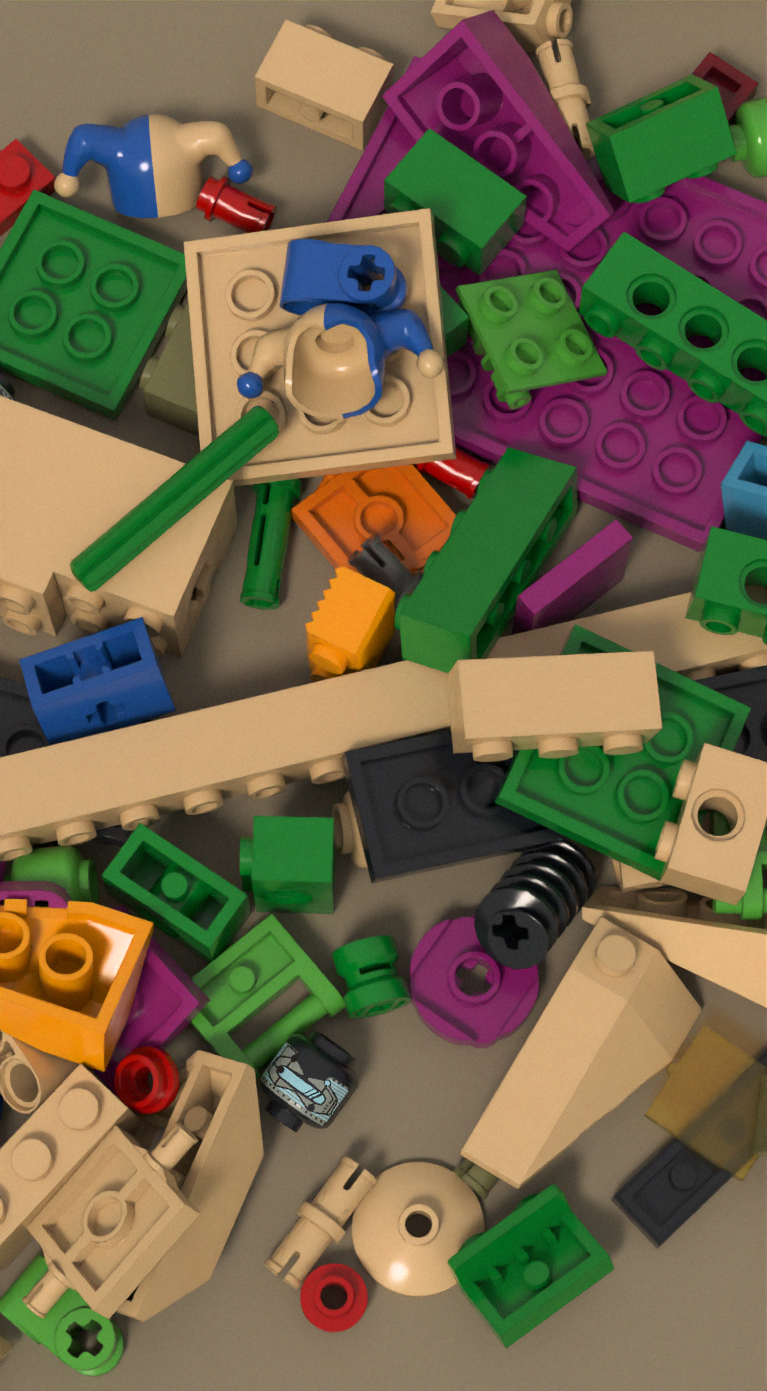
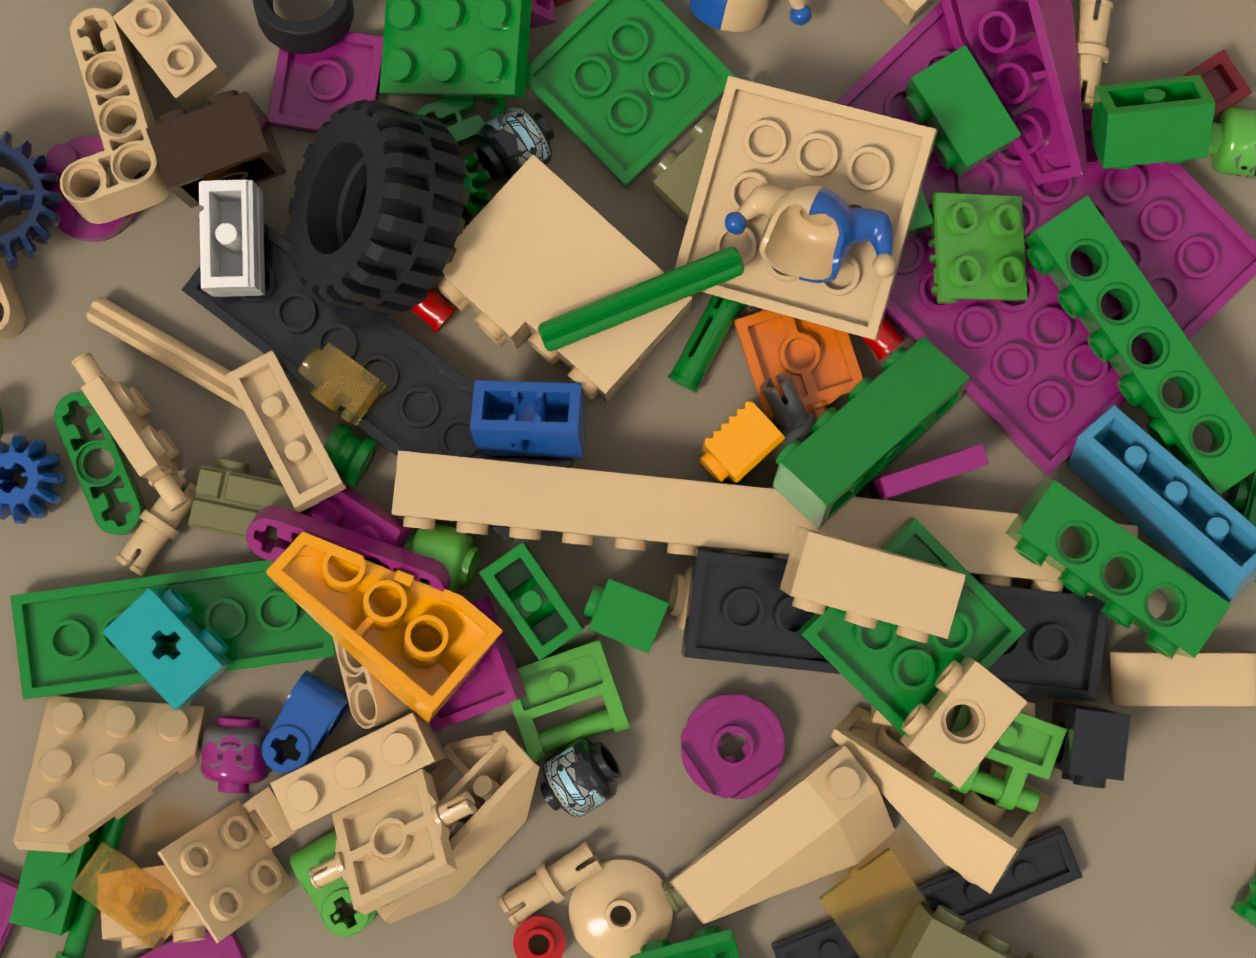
camera: 25 degrees right, 15 degrees up
(132, 1082) = (447, 737): red plate -> none
(234, 206) = (785, 42): red pin -> none
(336, 273) = (833, 161): blue piece -> none
(371, 977) = (656, 728): green wheel -> none
(534, 903) = (798, 716): black piece -> none

